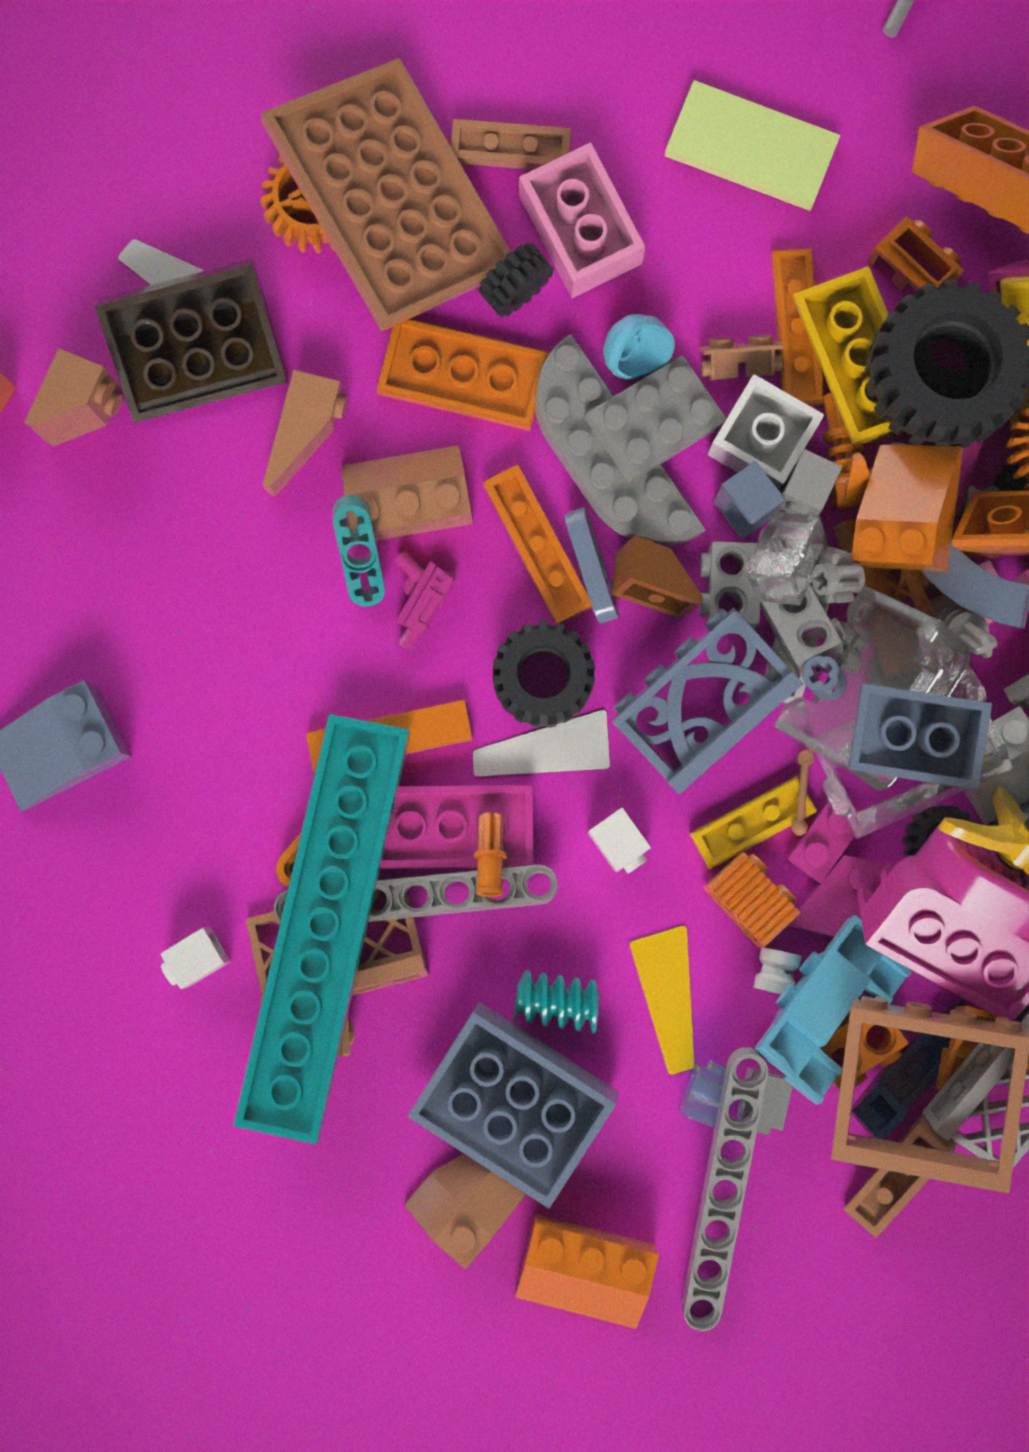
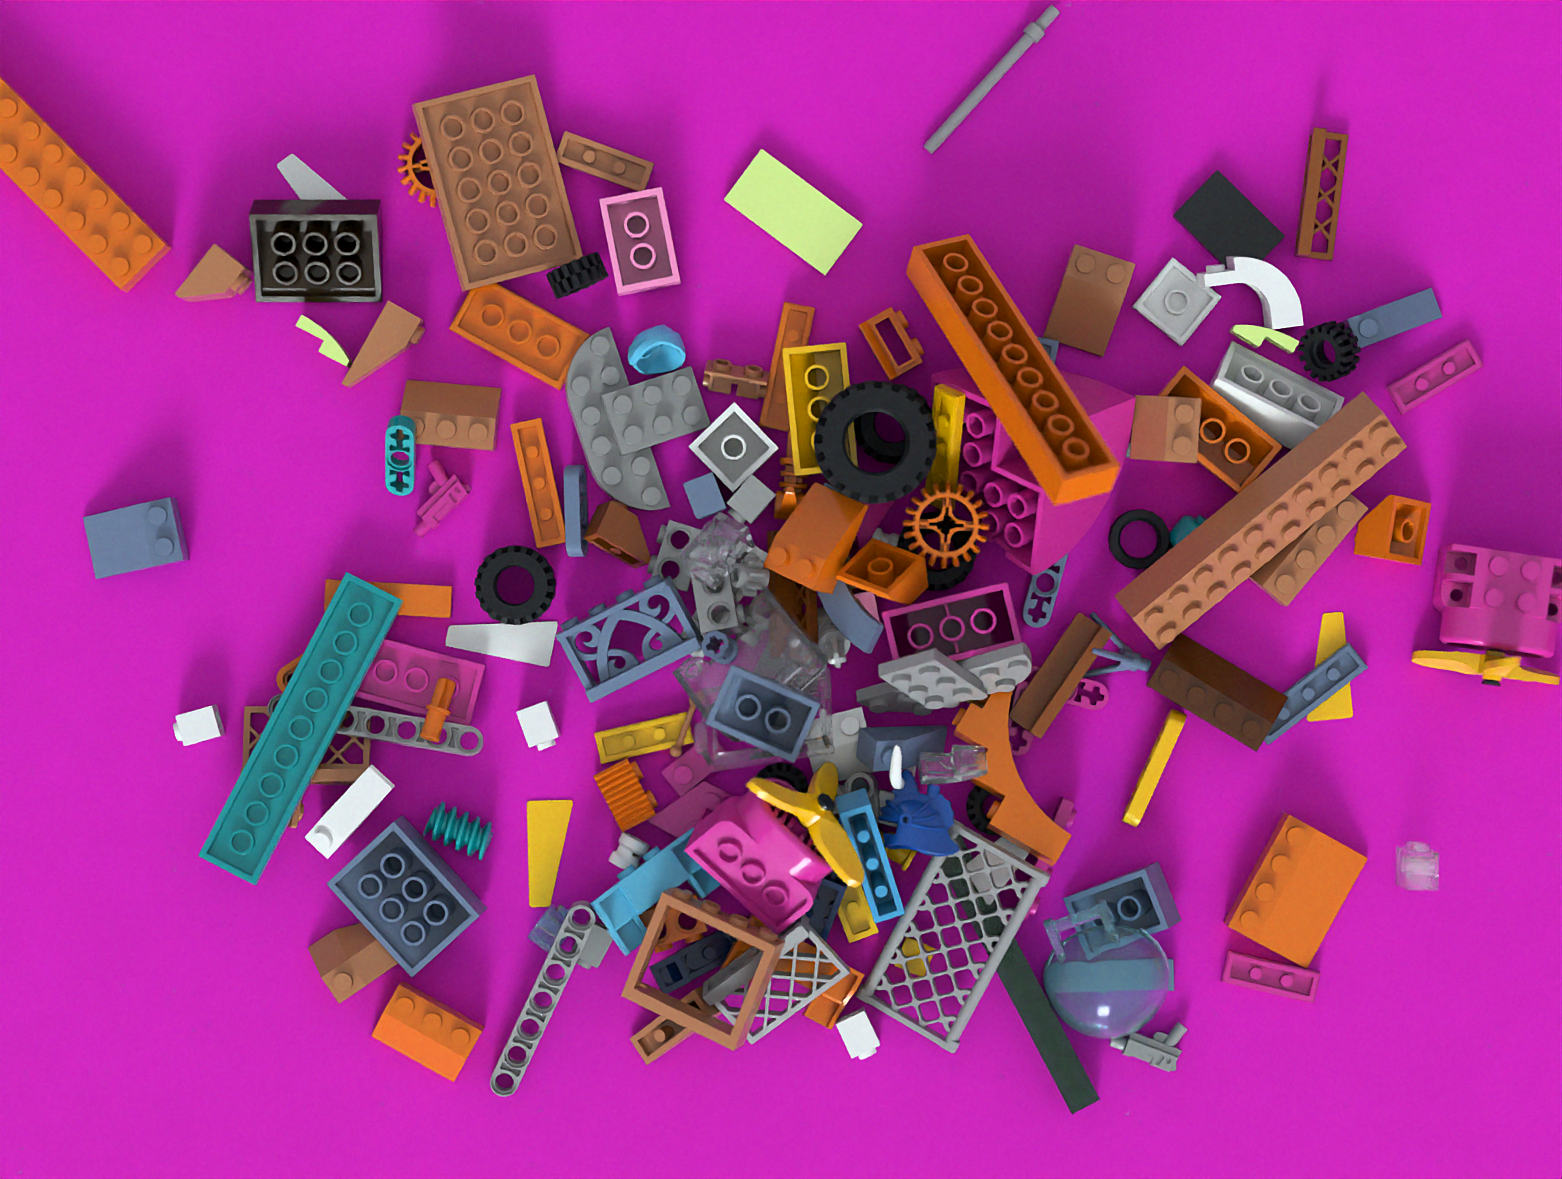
camera: 10 degrees right, 5 degrees up
(237, 448) = (330, 346): none -> yellowish green slope
(413, 1014) = (349, 811): none -> white slope

